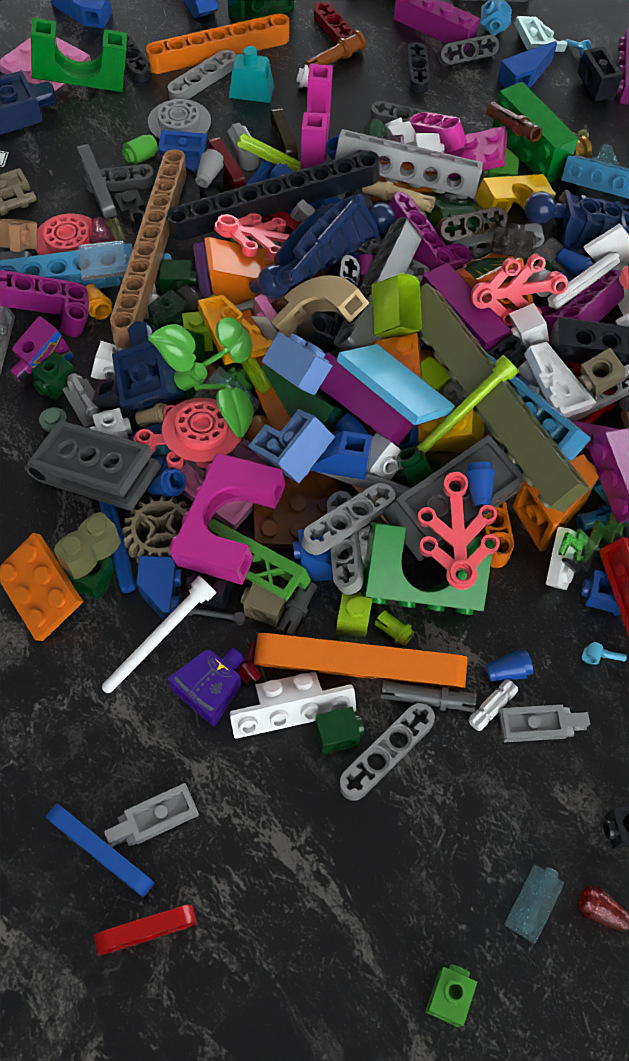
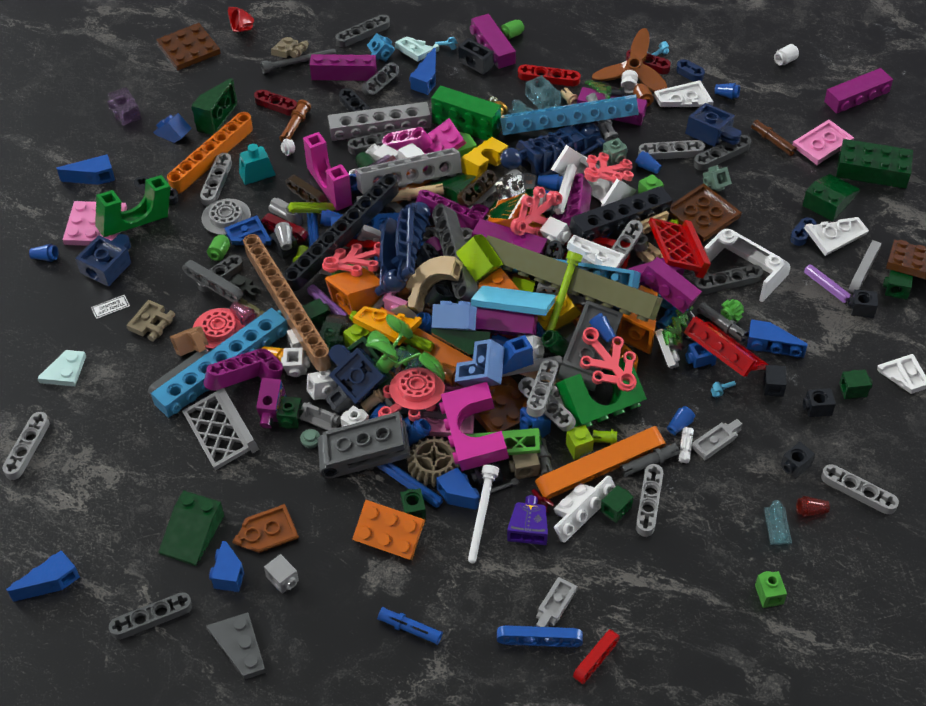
camera: 30 degrees left, 10 degrees down
(83, 548) = (406, 486): olive brick -> none
(98, 318) = (295, 361): none -> white brick
(102, 260) = (263, 327): clear piece -> none
(426, 93) = (378, 120): none -> light grey brick
(519, 124) = (459, 113): reddish brown pin -> none
(607, 362) = (617, 228): dark tan brick -> none

